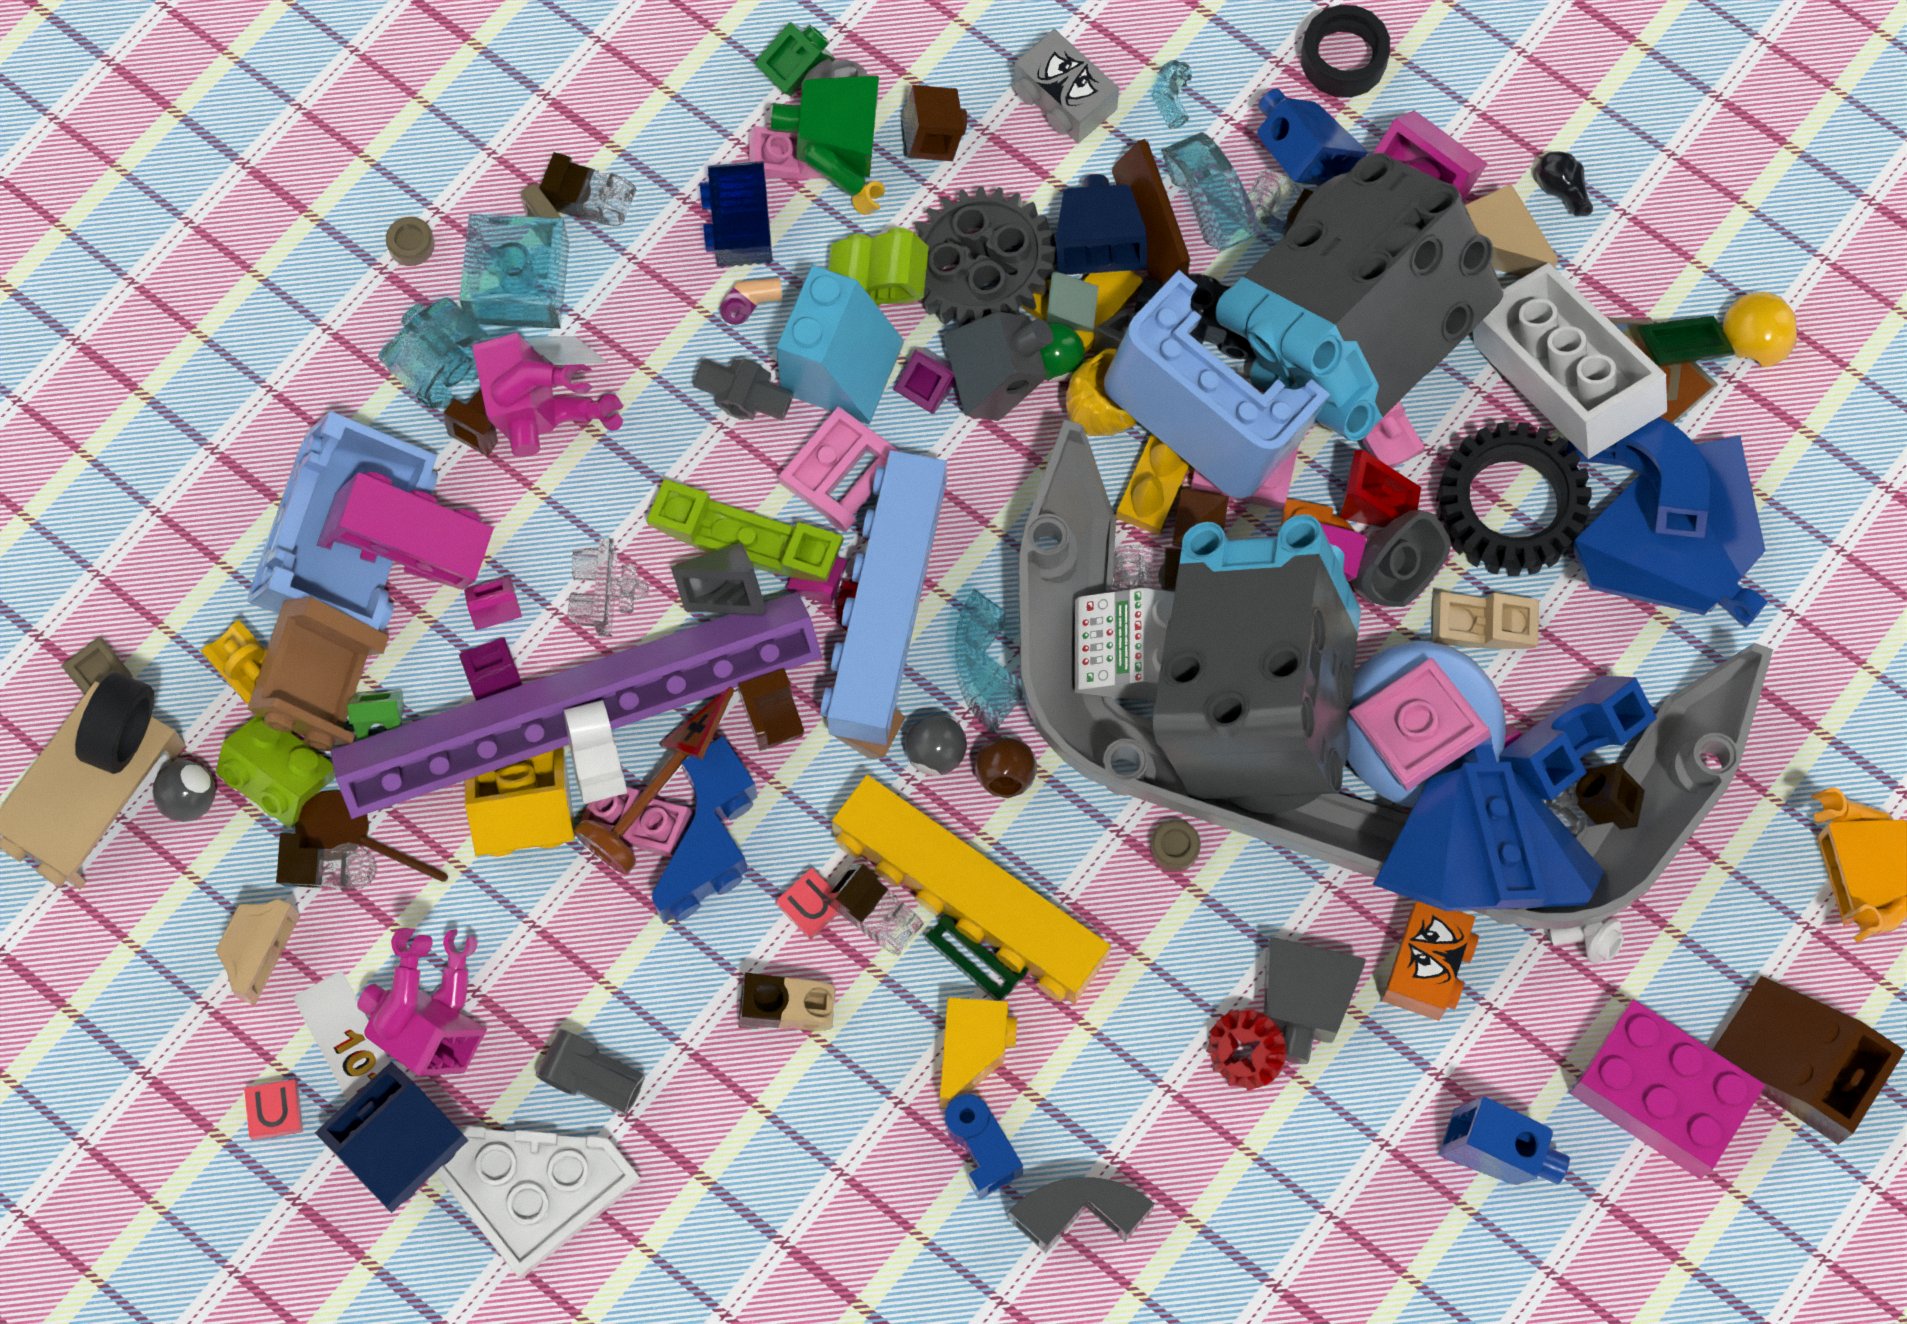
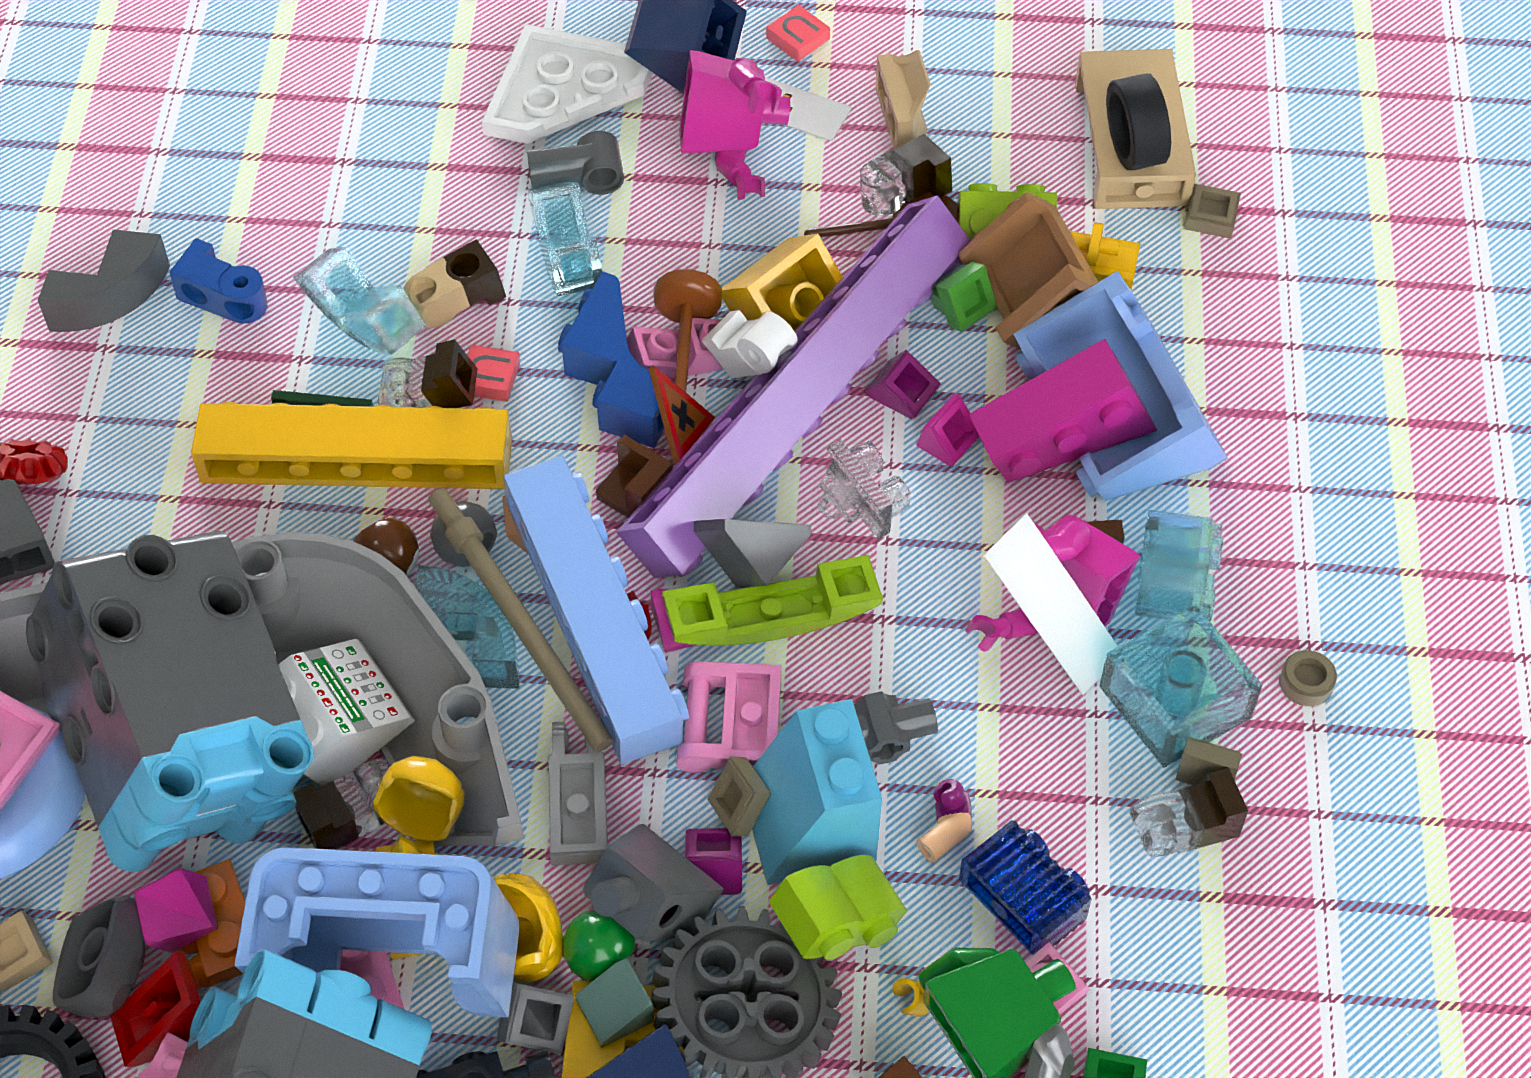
camera: 145 degrees right, 15 degrees down
(183, 791) = (1059, 164): dark grey piece -> none
(658, 990) = (564, 238): none -> clear light blue brick
(875, 1037) = (370, 315): none -> clear light blue brick
(883, 396) = (739, 796): none -> dark tan tile
(947, 704) = (466, 539): none -> dark tan bar
(973, 1044) = (273, 342): yellow slope -> none
(992, 478) = (576, 802): none -> light grey hinge
(1109, 518) = (419, 798): none -> yellow hair

